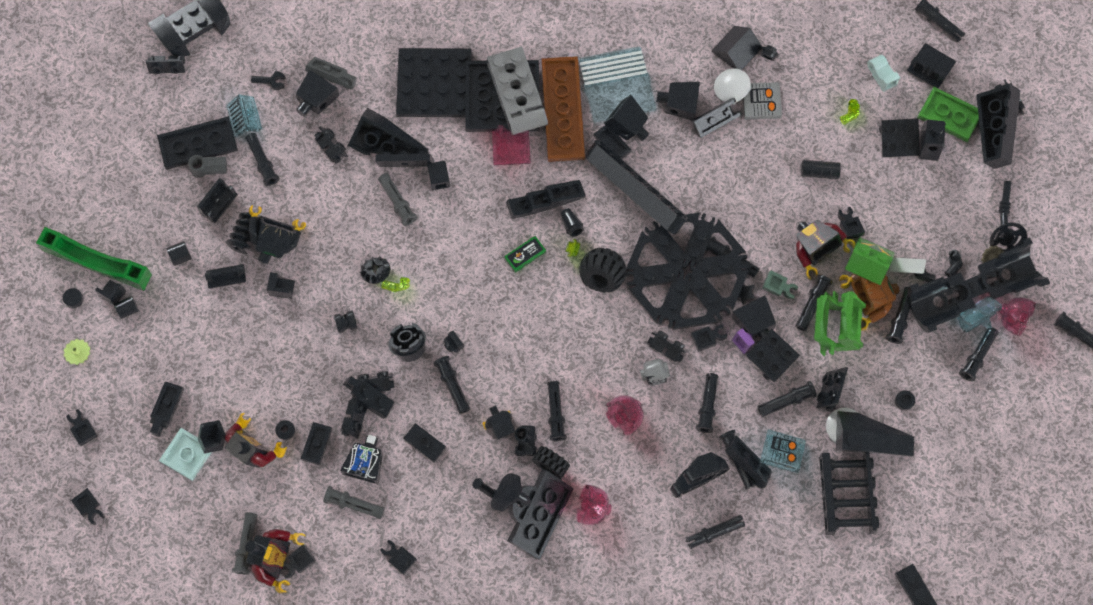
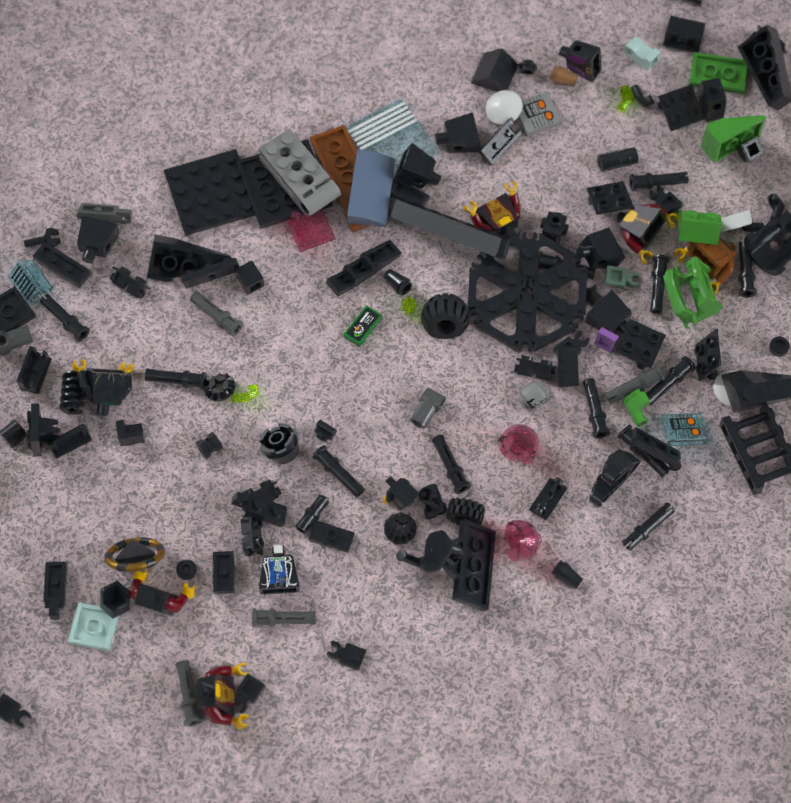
camera: 20 degrees left, 5 degrees down
(201, 258) = (40, 430): none -> black plate
(243, 401) = (134, 554): none -> piece
(276, 109) = (62, 264): none -> black plate
(347, 252) = (183, 378): none -> black pin
(414, 416) = (312, 514): none -> black pin
(496, 460) = (397, 536): none -> black gear
(557, 349) = (429, 404): none -> dark grey piece
(578, 126) = (370, 189): none -> sand blue slope
(622, 551) = (566, 574): none -> black cone
(633, 473) = (548, 498): none -> black hinge
(687, 189) = (498, 215): none -> torso
(697, 355) = (567, 366): none -> black plate
(735, 217) = (554, 226): none -> black brick
(746, 411) = (635, 403): none -> bright green piece
(762, 391) = (643, 380): none -> dark grey pin
(770, 253) = (601, 249): none -> black torso
(797, 205) = (609, 198): none -> black hinge
(799, 72) = (563, 76): none -> medium nougat cone
(823, 62) = (583, 59): none -> black torso
(842, 199) = (648, 180): none -> black pin
(864, 114) = (639, 97): none -> black arm
(936, 180) = (727, 133): none -> bright green slope
(950, 200) = (750, 149): none -> black brick

